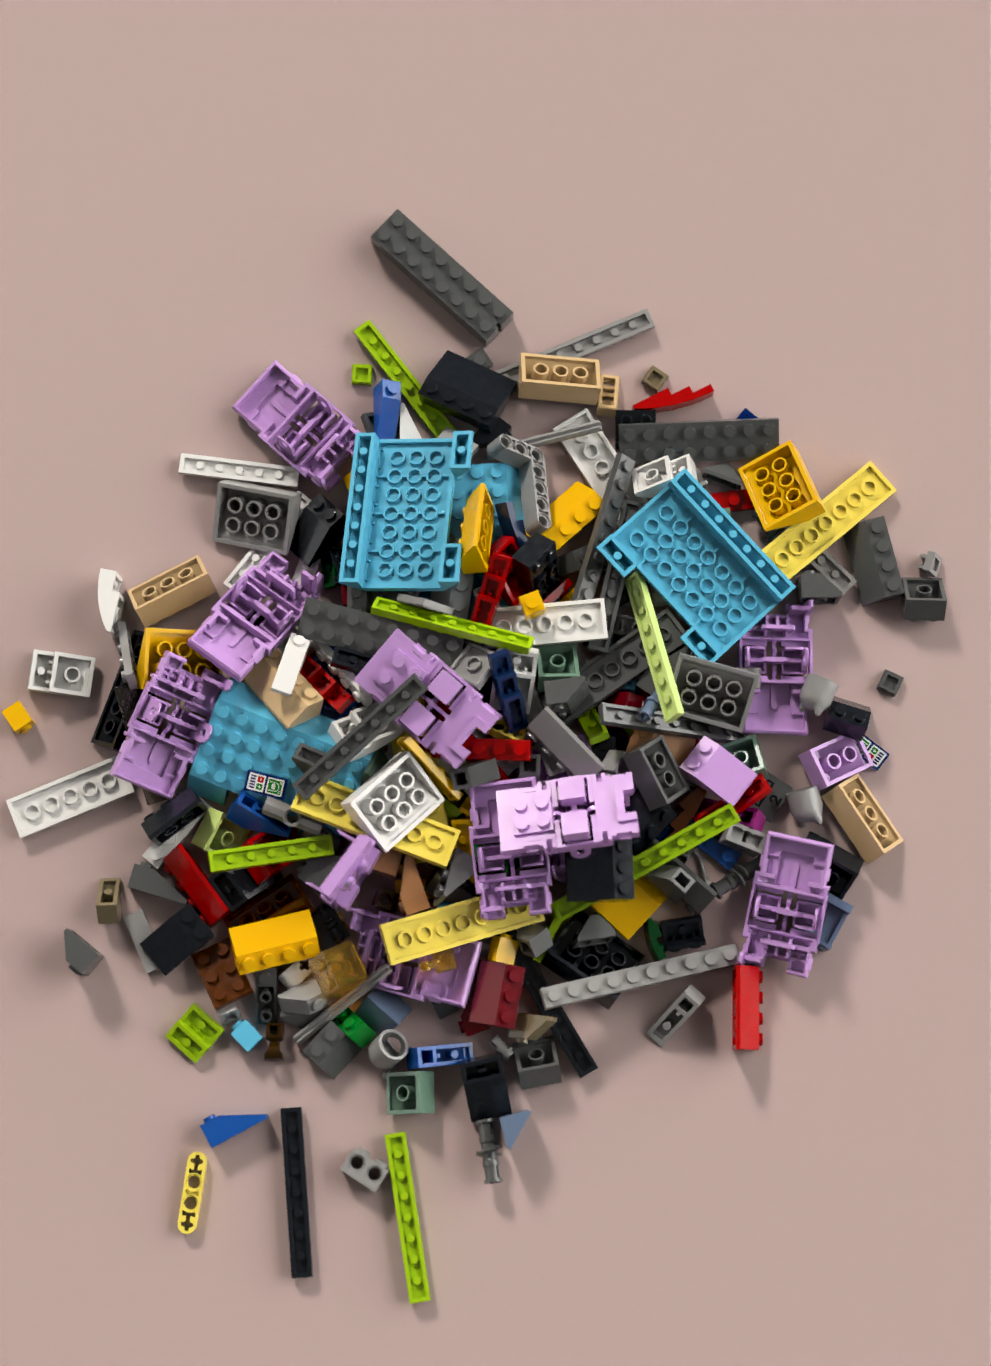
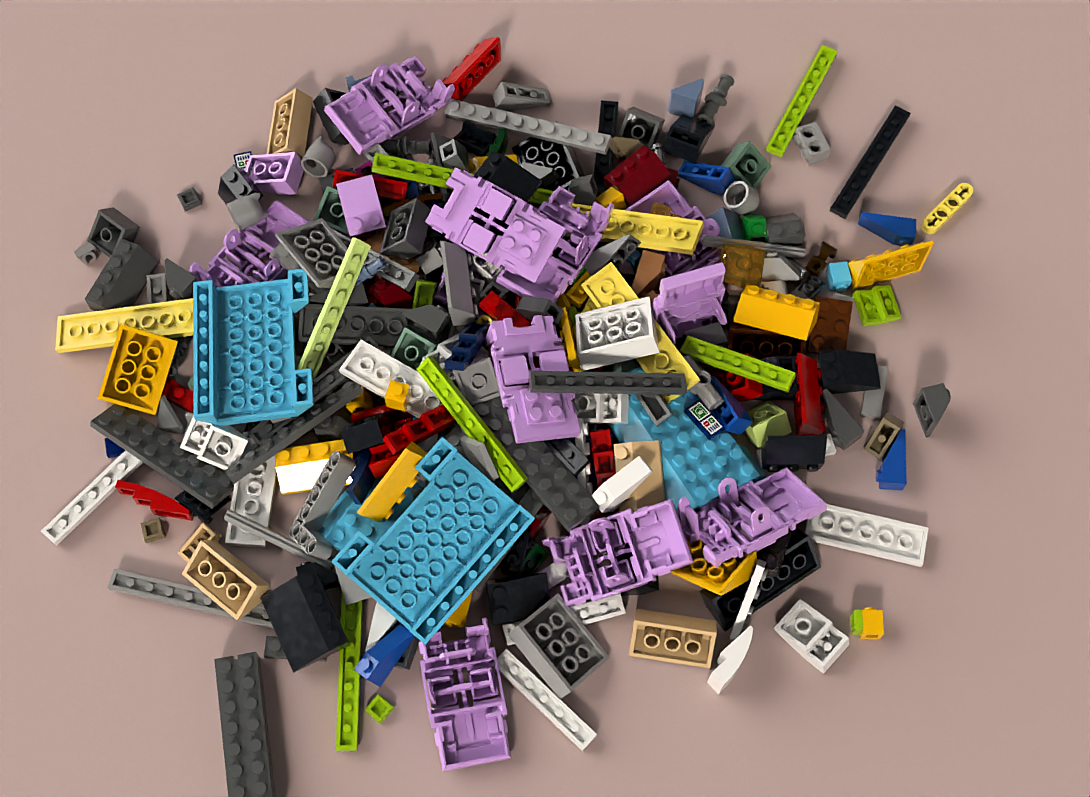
camera: 145 degrees left, 15 degrees down
(31, 710) = (856, 622): none -> lime tile
(83, 874) = (893, 469): none -> blue slope
(209, 1078) = (889, 264): none -> yellow slope
(726, 365) = (90, 497): none -> white plate

